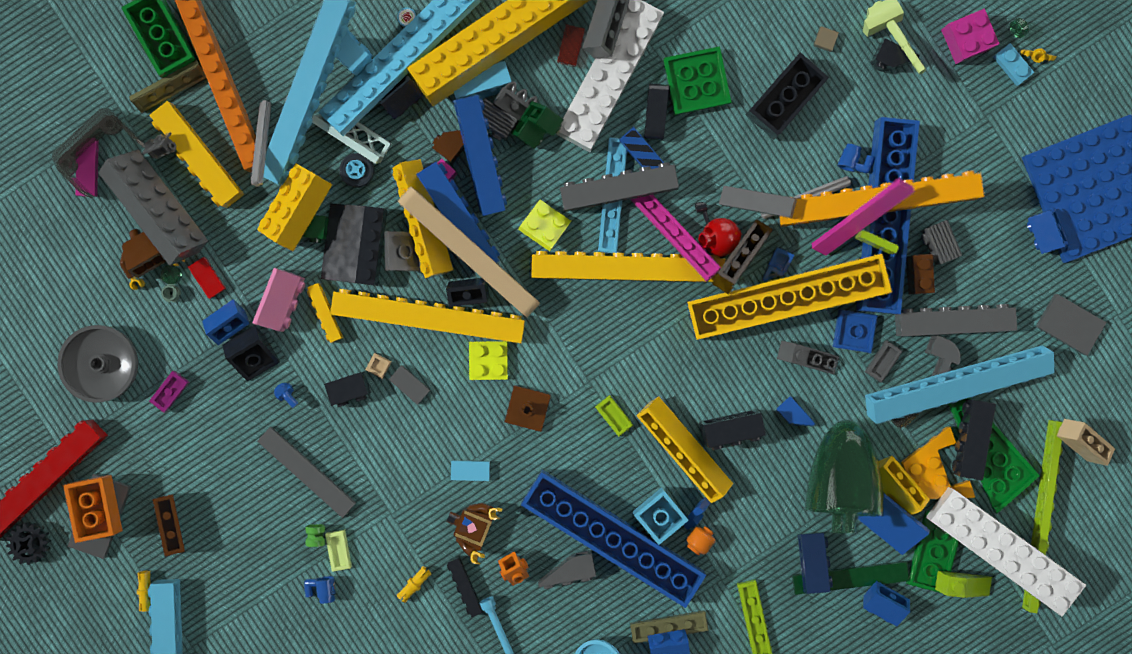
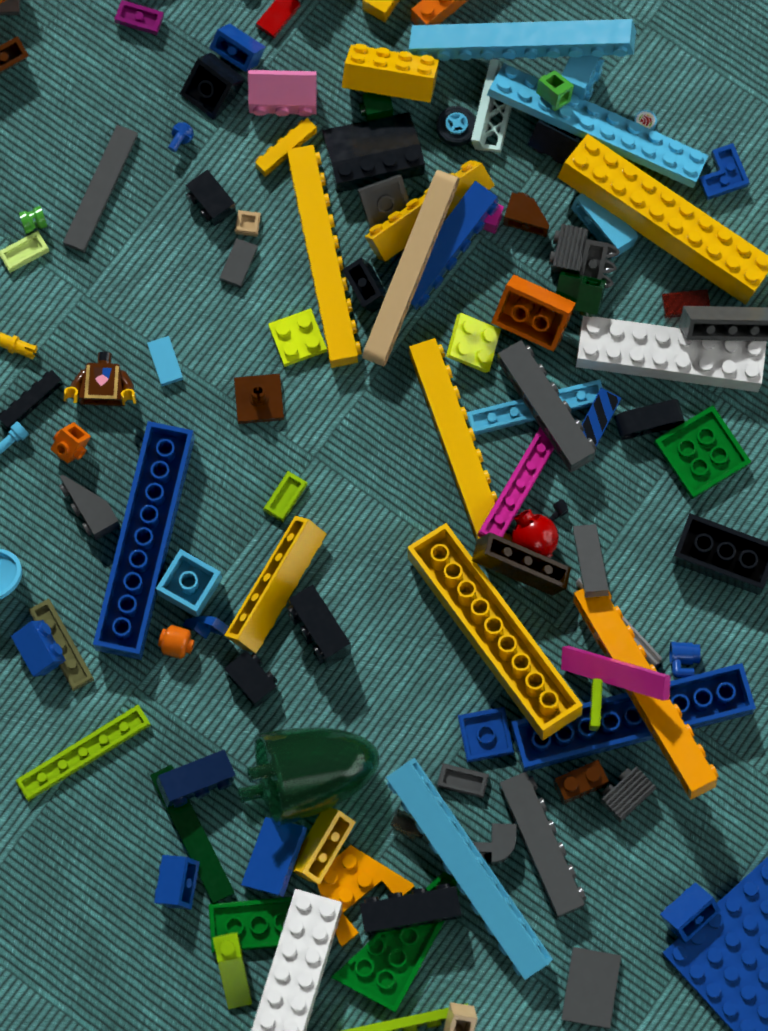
camera: 70 degrees right, 15 degrees down
(261, 143) = (446, 16): light grey axle -> none
(360, 79) = (555, 89): none -> bright green brick
(479, 155) = (522, 243): blue brick -> none
(540, 168) = (533, 312): none -> orange brick
(750, 493) = (251, 678): none -> black brick
(778, 264) = (533, 618): blue slope -> none
(794, 413) = (362, 697): blue slope -> none
(807, 357) = (434, 690): dark grey slope -> none

